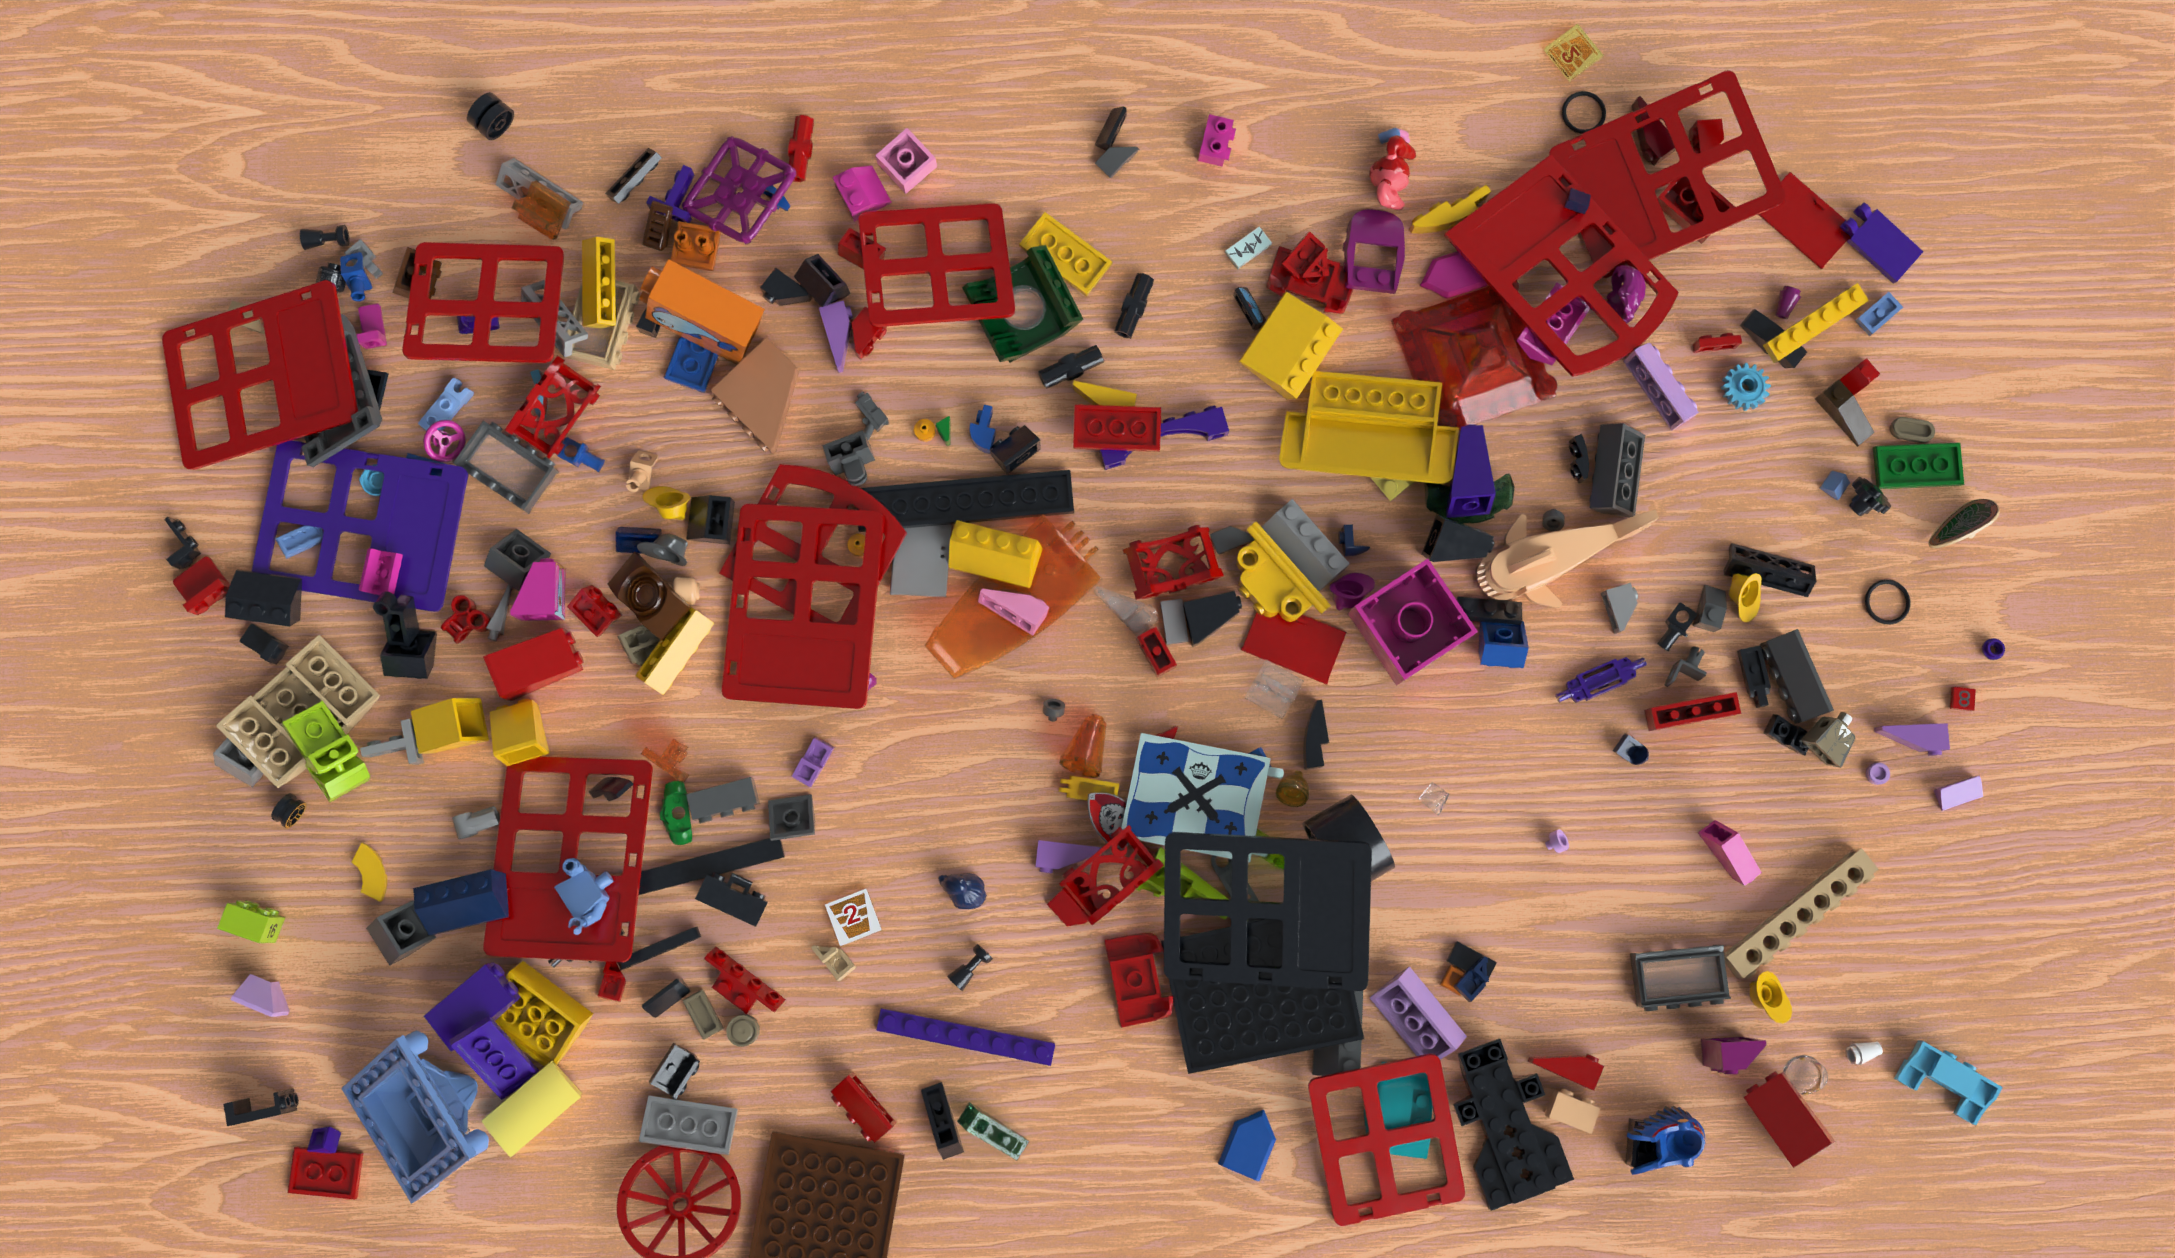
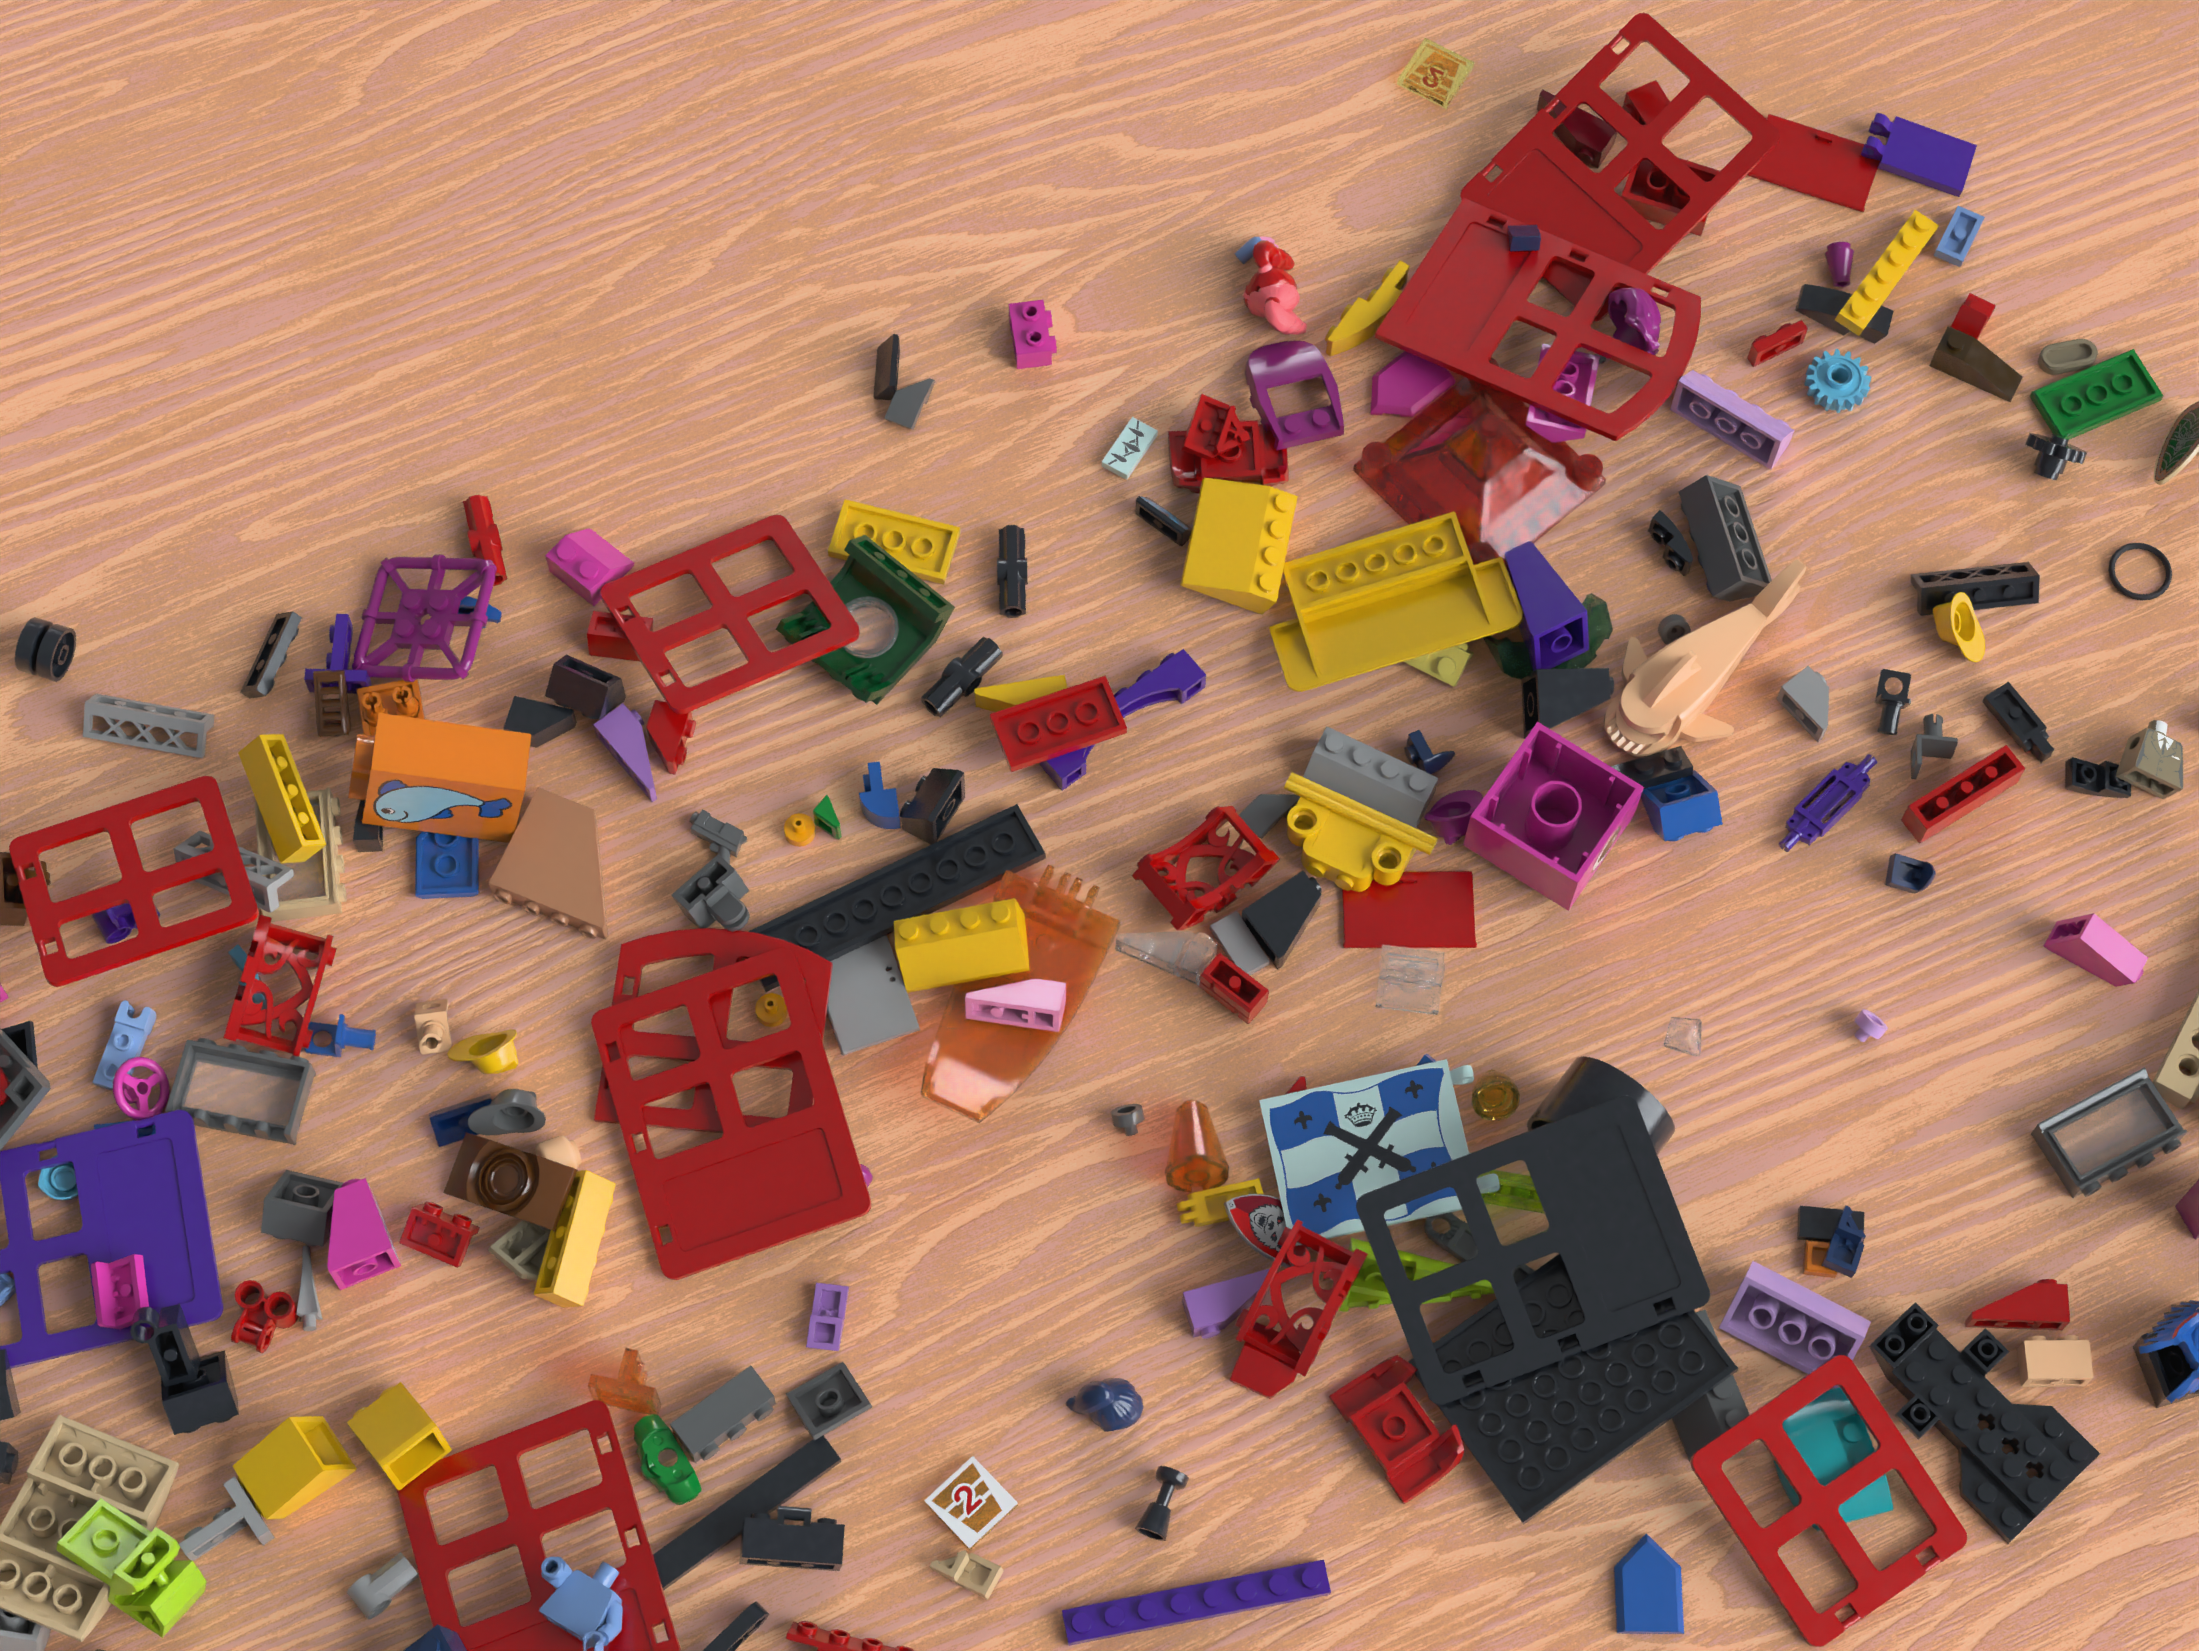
camera: 20 degrees left, 15 degrees down
(534, 664) = (384, 1334): red slope -> none
(542, 209) = (164, 741): clear orange bracket -> none
(611, 788) = (560, 1456): black slope -> none
(710, 519) = (554, 1050): black slope -> none
(906, 160) = (634, 502): bright pink brick -> none
(1315, 736) = (1493, 1018): black slope -> none
(1583, 93) = (1472, 115): black tyre -> none
(1711, 609) = (1925, 663): dark grey slope -> none
(1796, 677) = (2072, 700): dark grey slope -> none
(1835, 484) = (2006, 455): medium blue slope -> none

